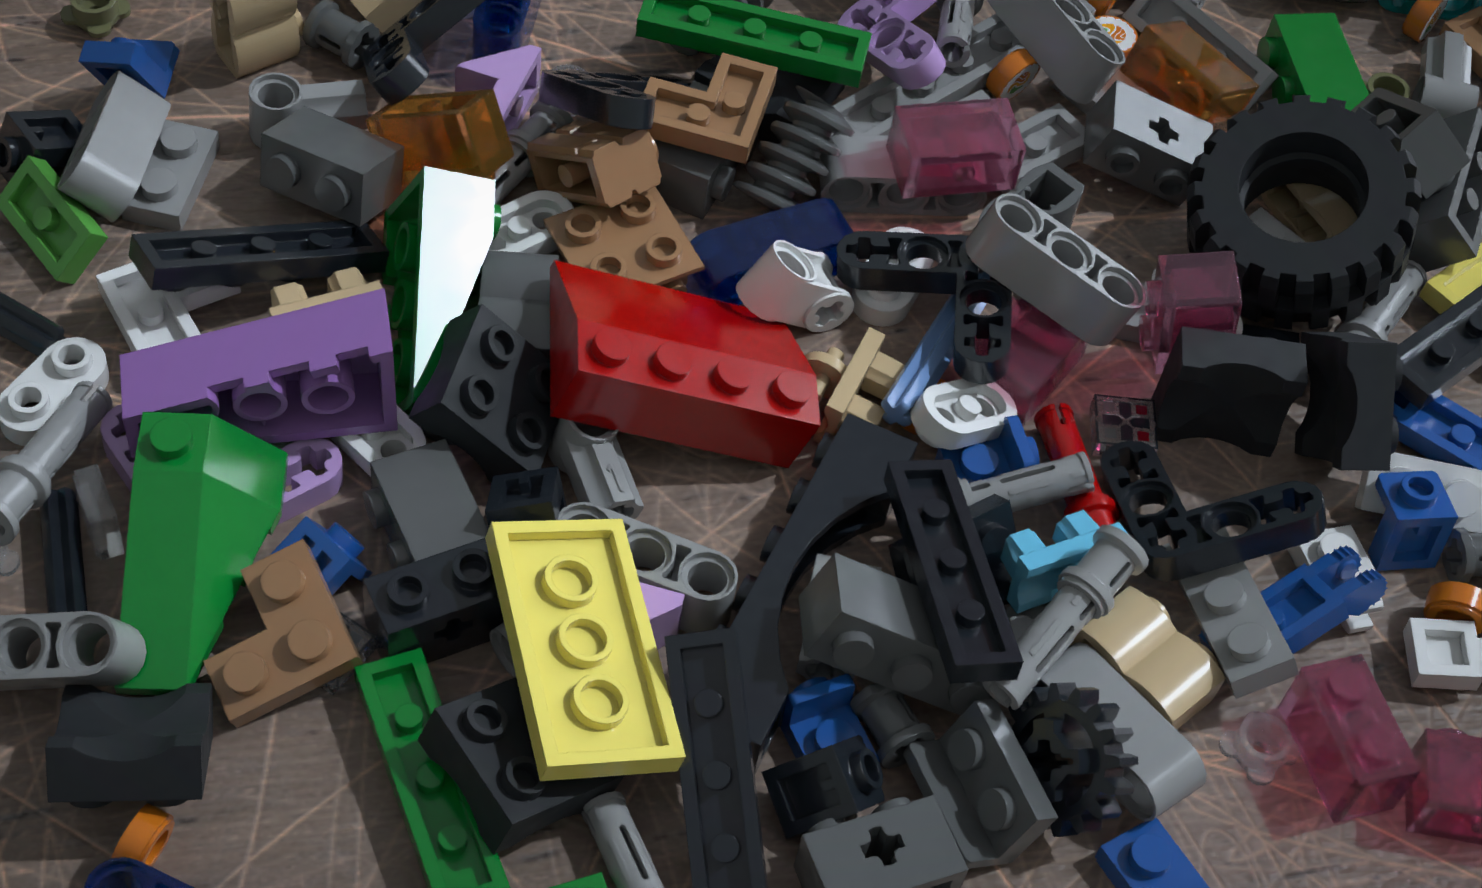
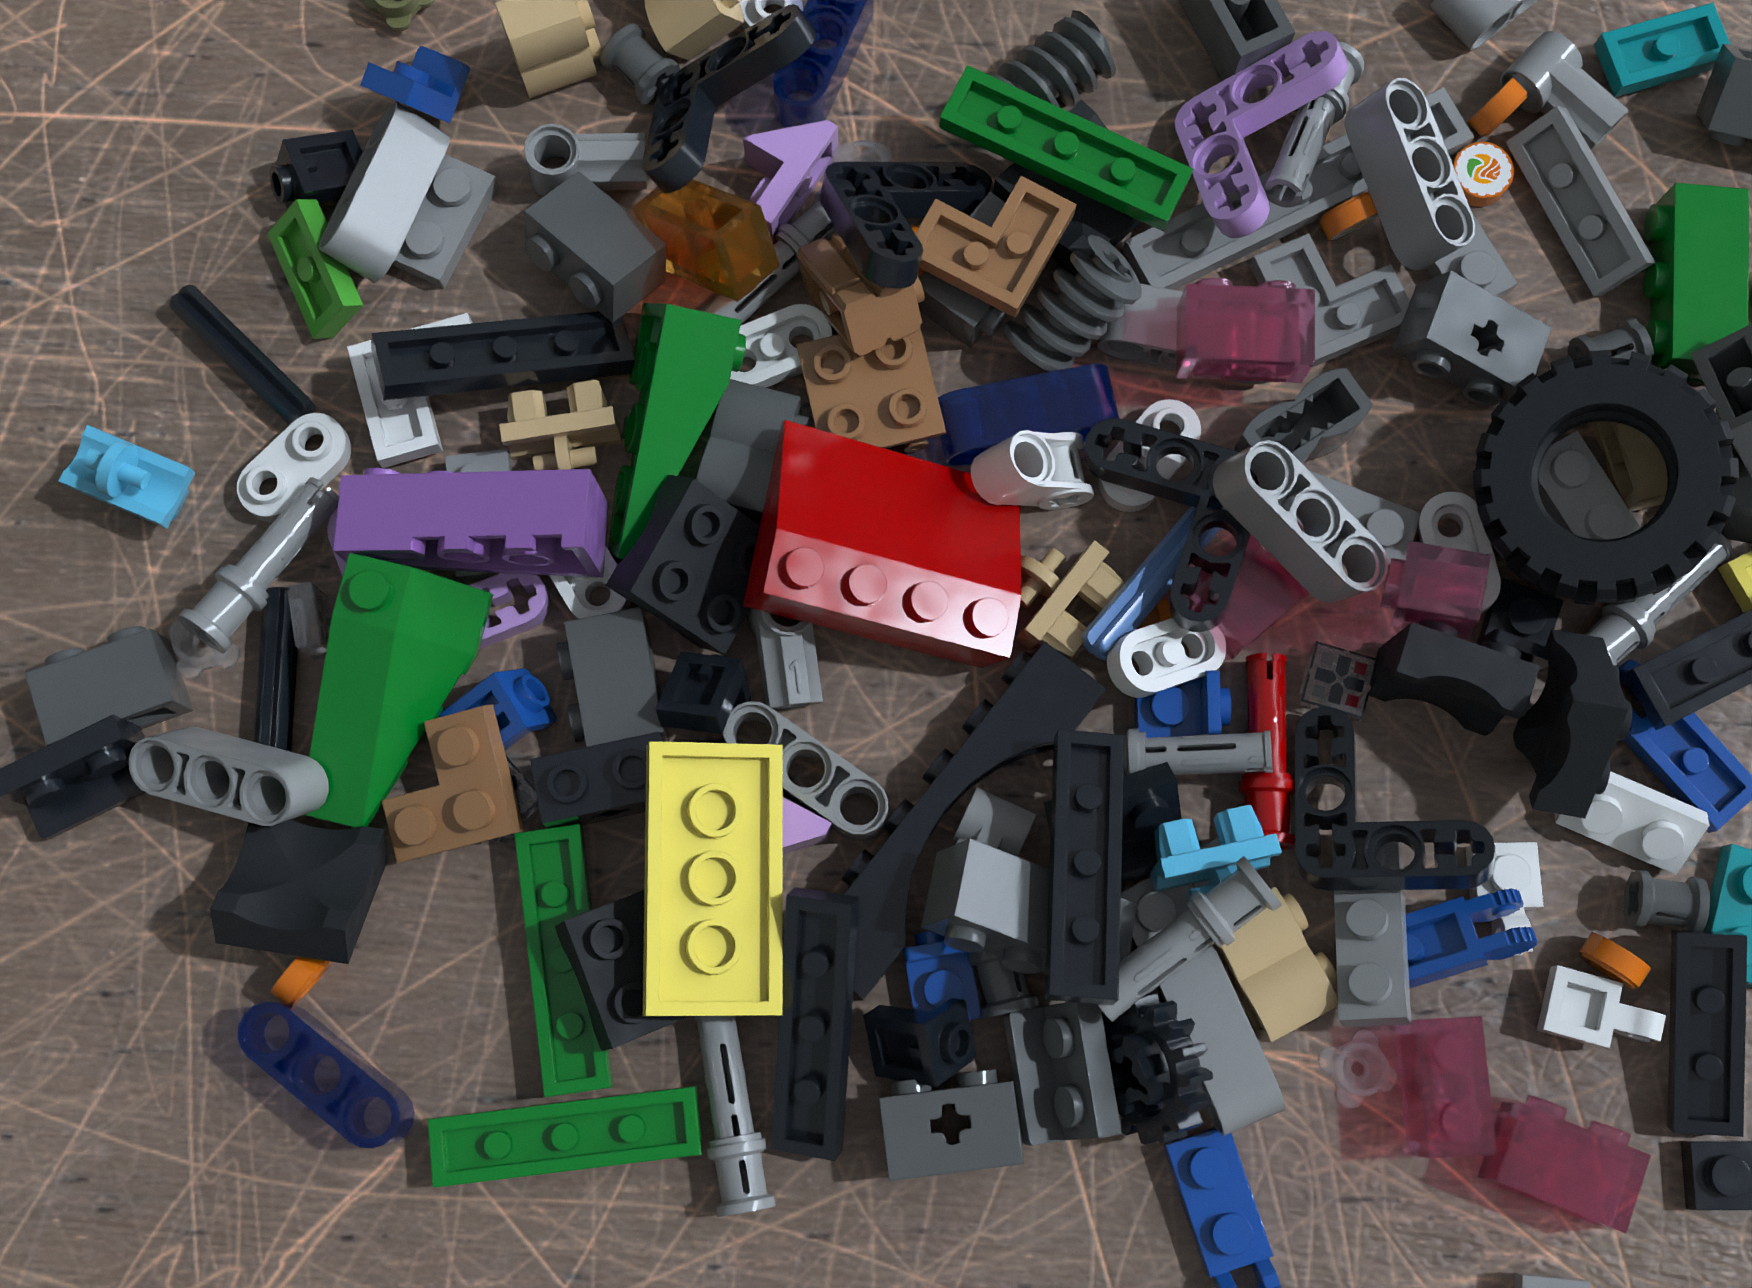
camera: 20 degrees right, 25 degrees up
(1188, 73) = (1549, 250): clear orange brick -> none
(1414, 522) = (1602, 855): blue bracket -> none

